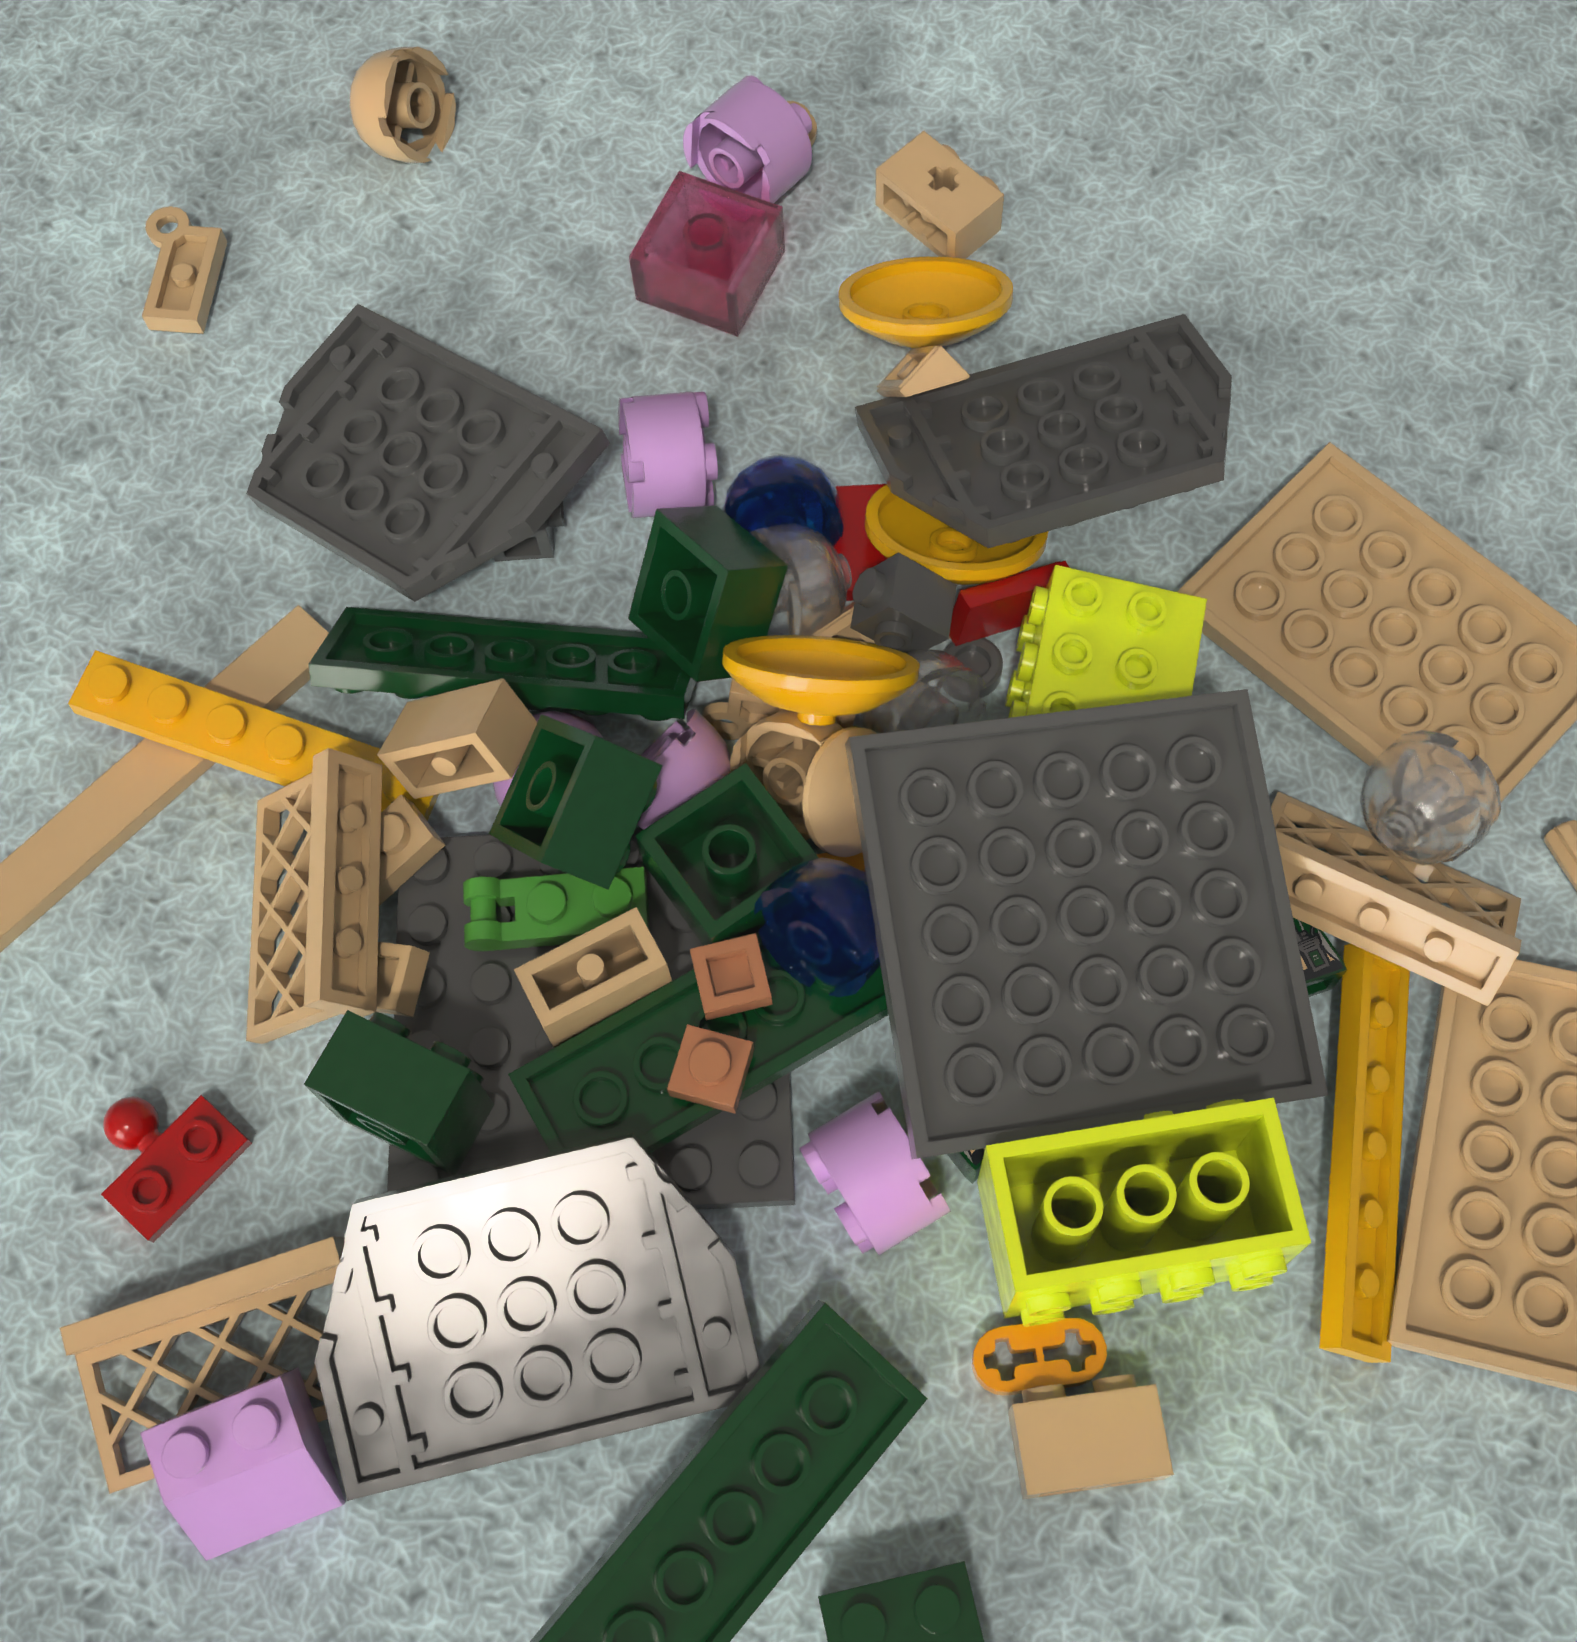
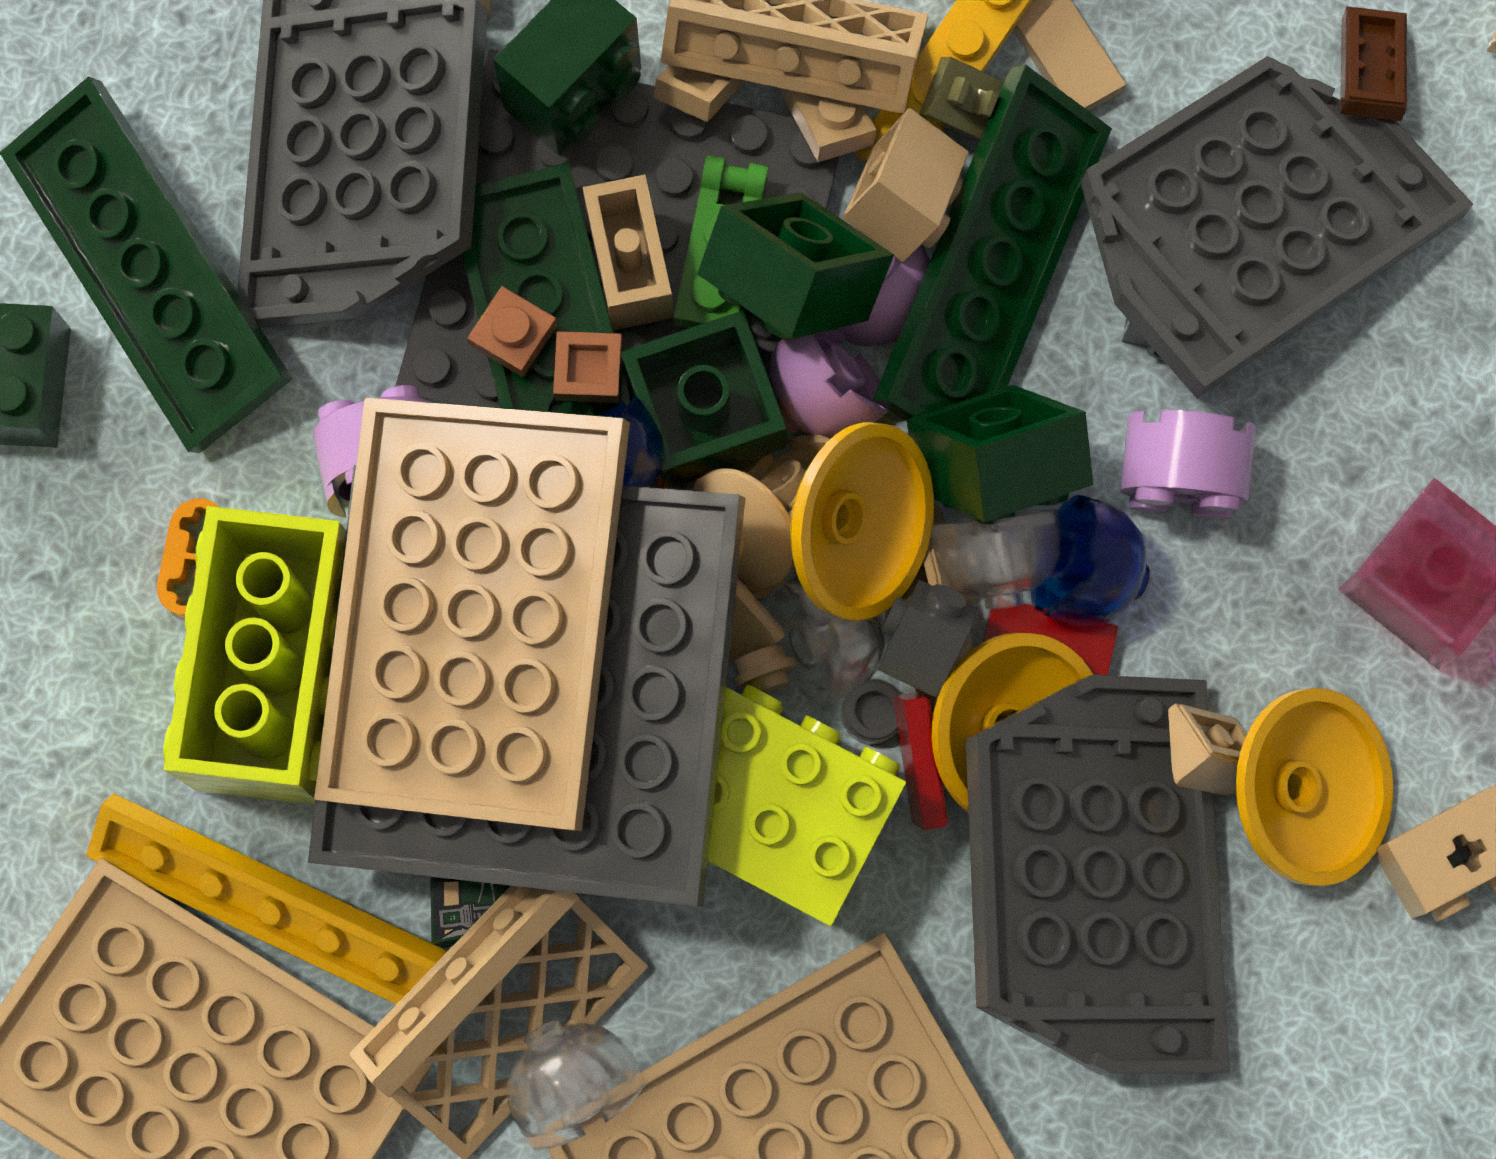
camera: 100 degrees right, 10 degrees up
(236, 409) = (1373, 64): none -> reddish brown plate
(350, 723) = (961, 98): none -> olive tile
(1038, 974) = (473, 612): none -> tan plate
(1089, 1438) = (108, 573): tan brick -> none

